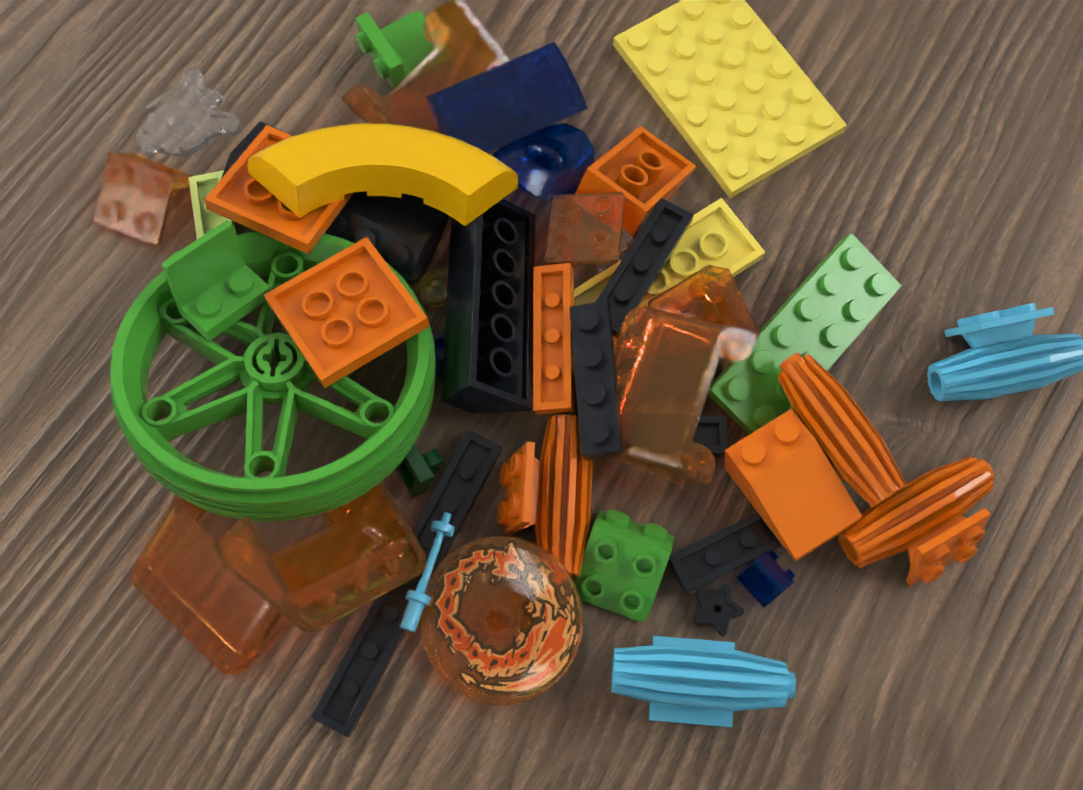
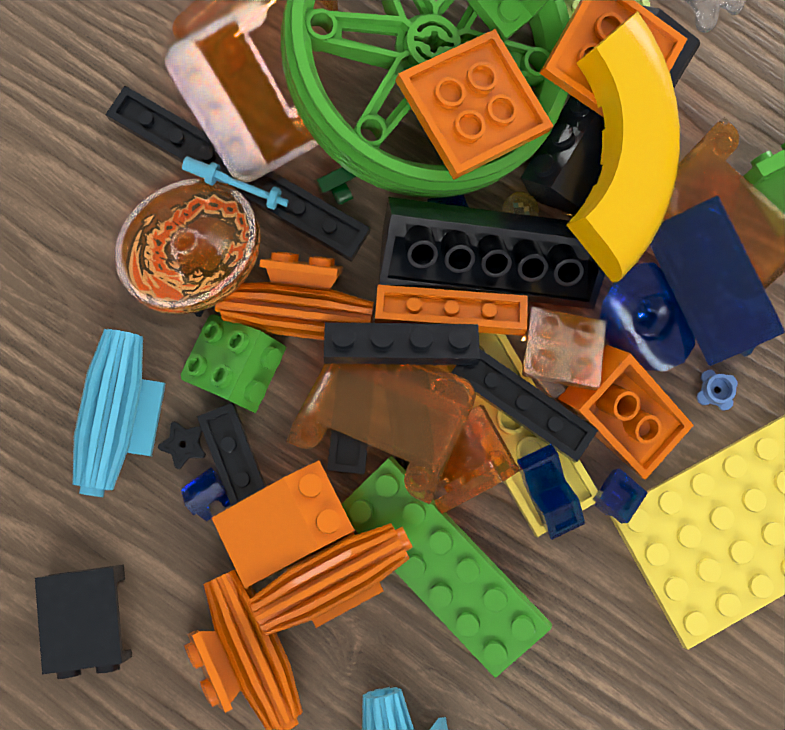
camera: 90 degrees right, 10 degrees up
(608, 99) = (726, 384): none -> medium blue plate
(718, 181) = (619, 496): none -> clear blue tile
(725, 239) = (550, 492): none -> clear blue slope
(917, 693) = (80, 621): none -> black panel

